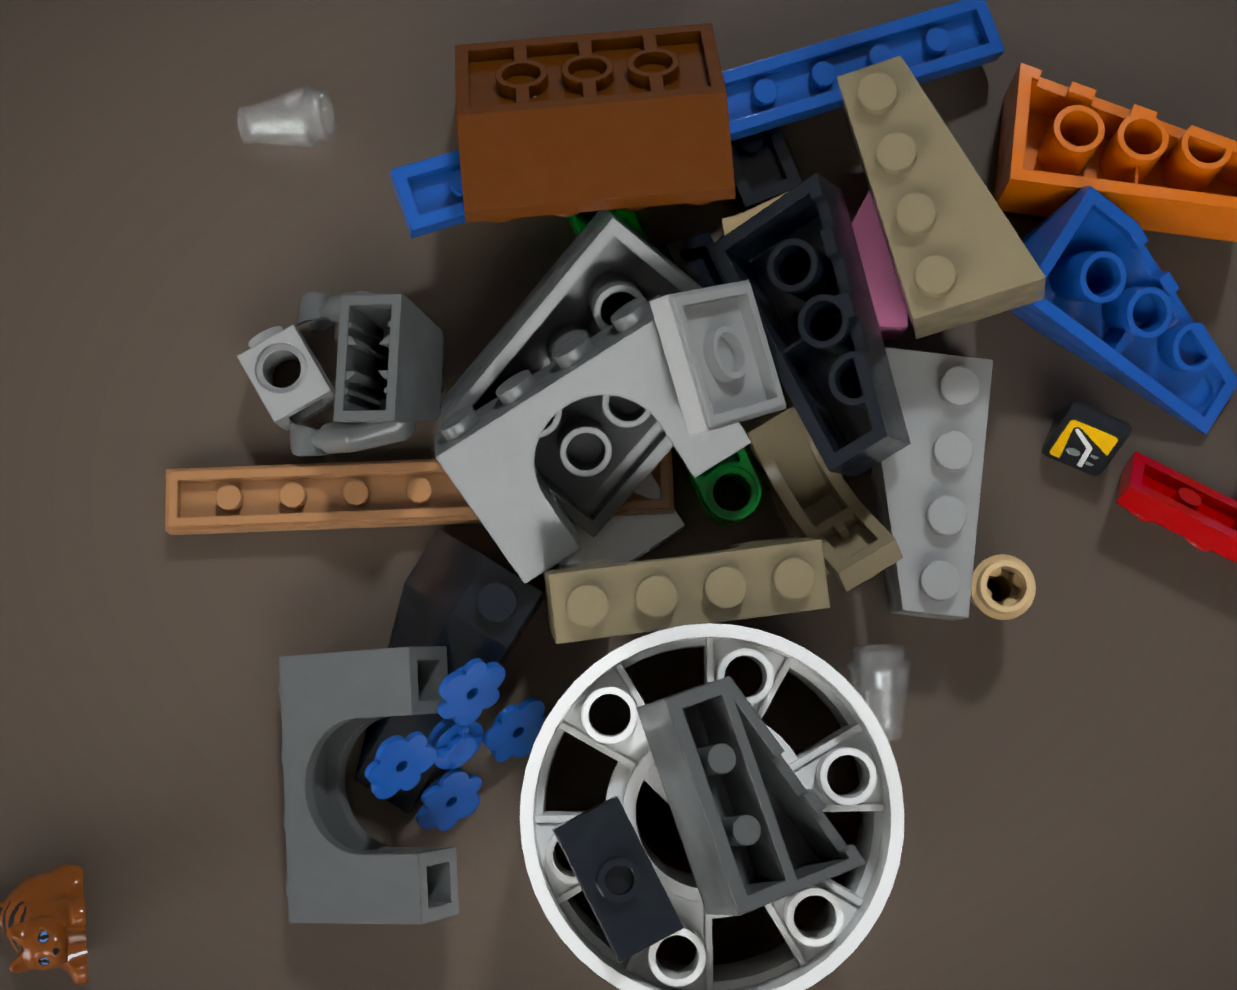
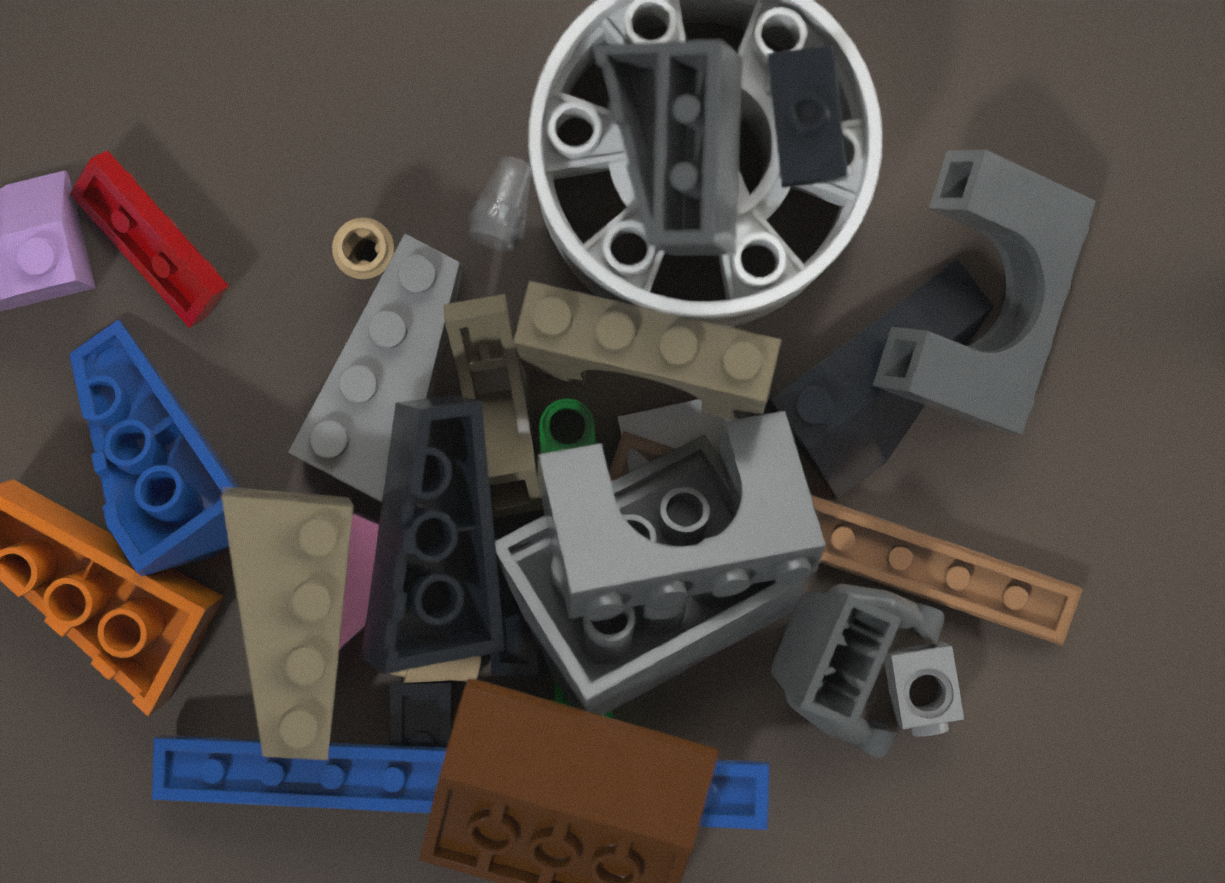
camera: 160 degrees left, 5 degrees up
(454, 743) = (895, 299): blue plant -> none
(717, 356) = (541, 537): light grey tile -> none
(1085, 438) = (230, 355): slope -> none

